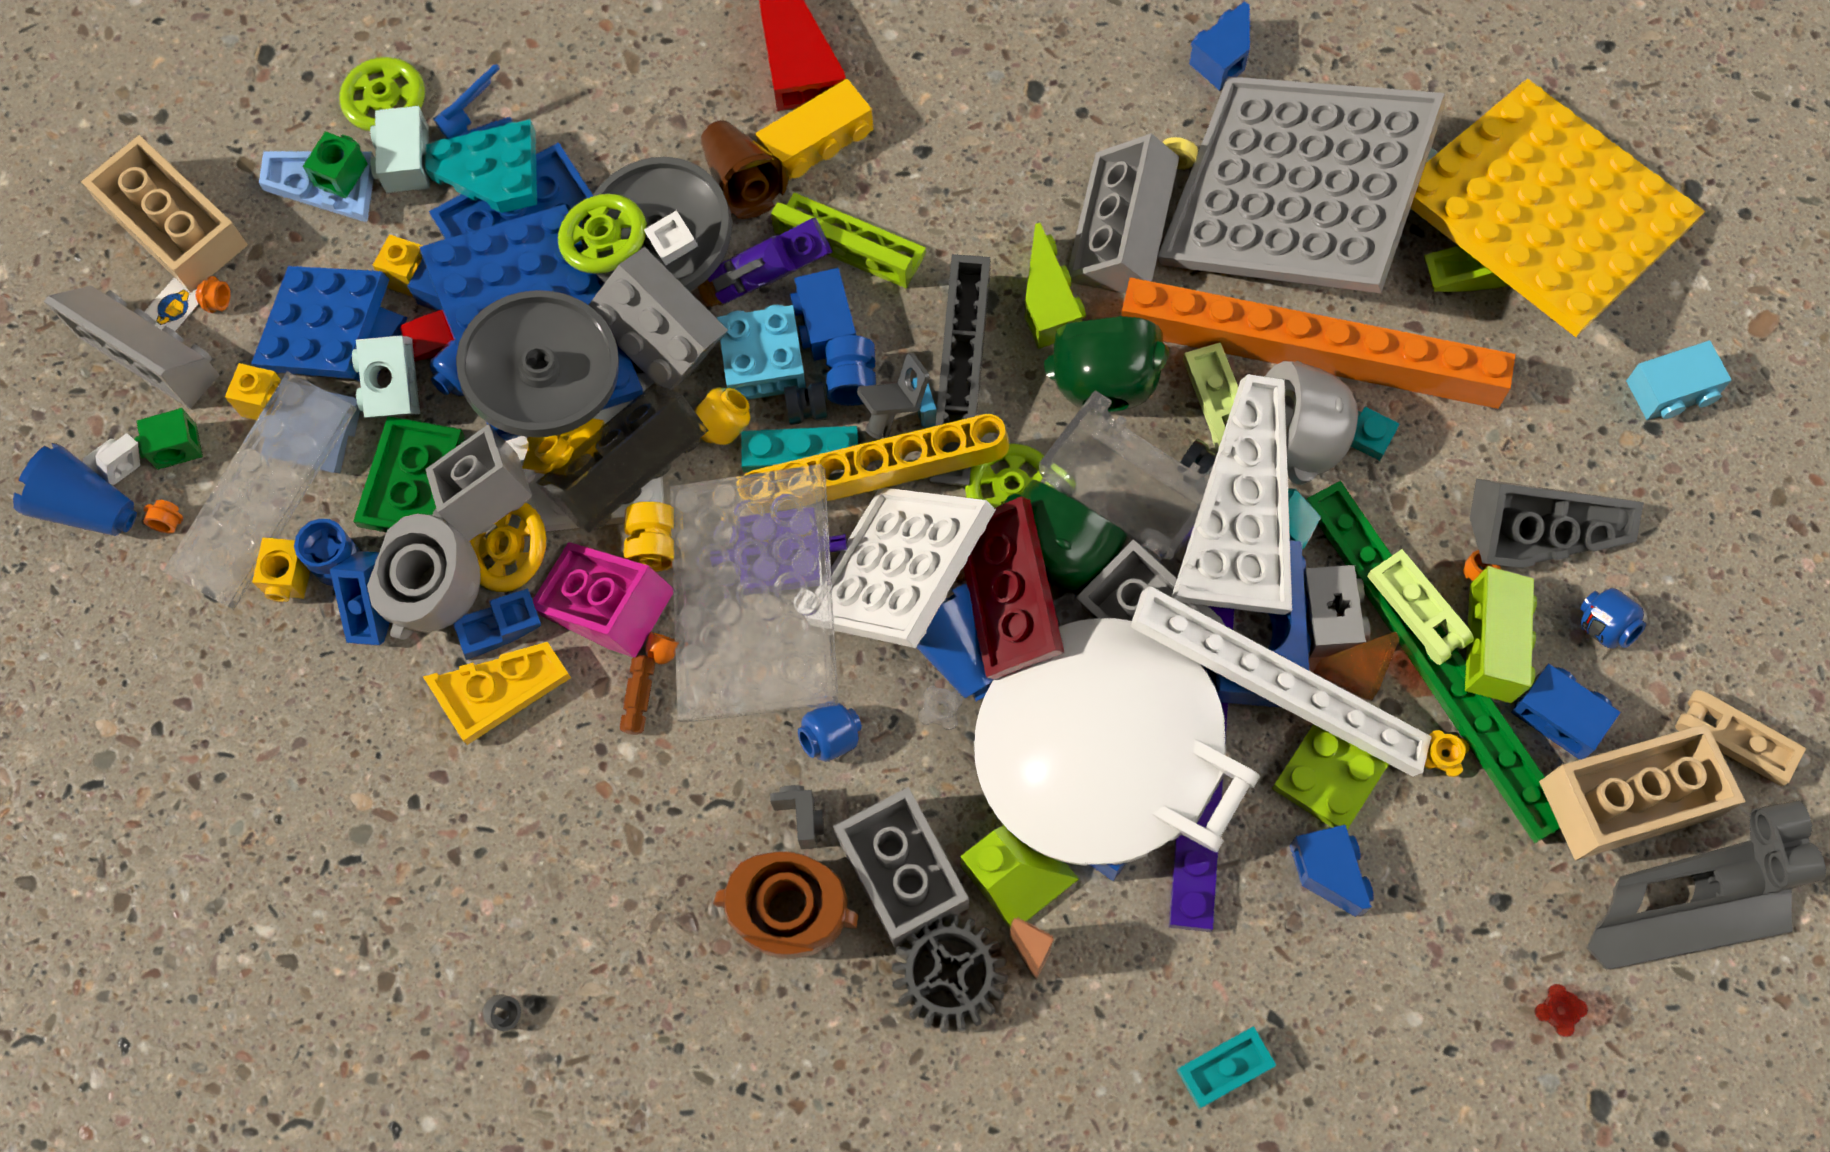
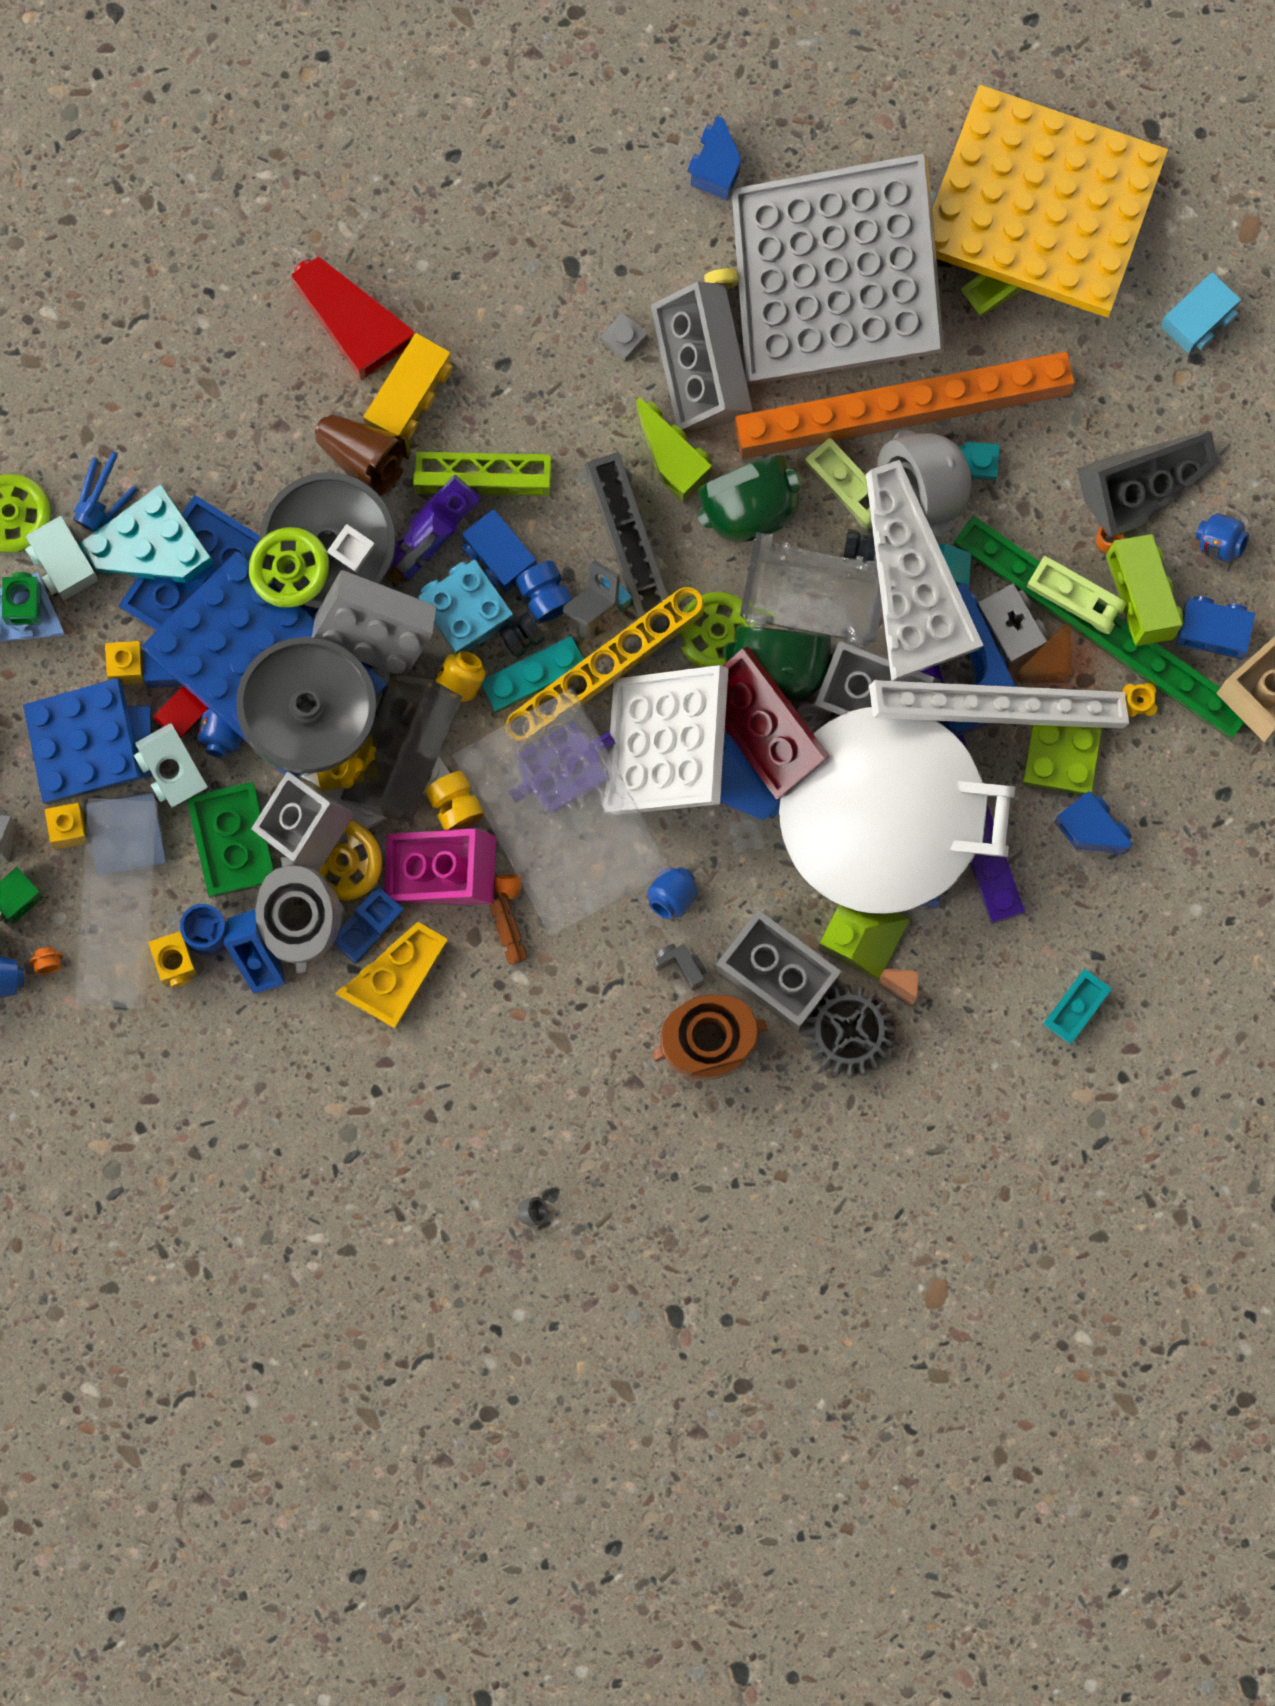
camera: 30 degrees left, 10 degrees up
(1054, 170) = (623, 336): none -> light grey plate

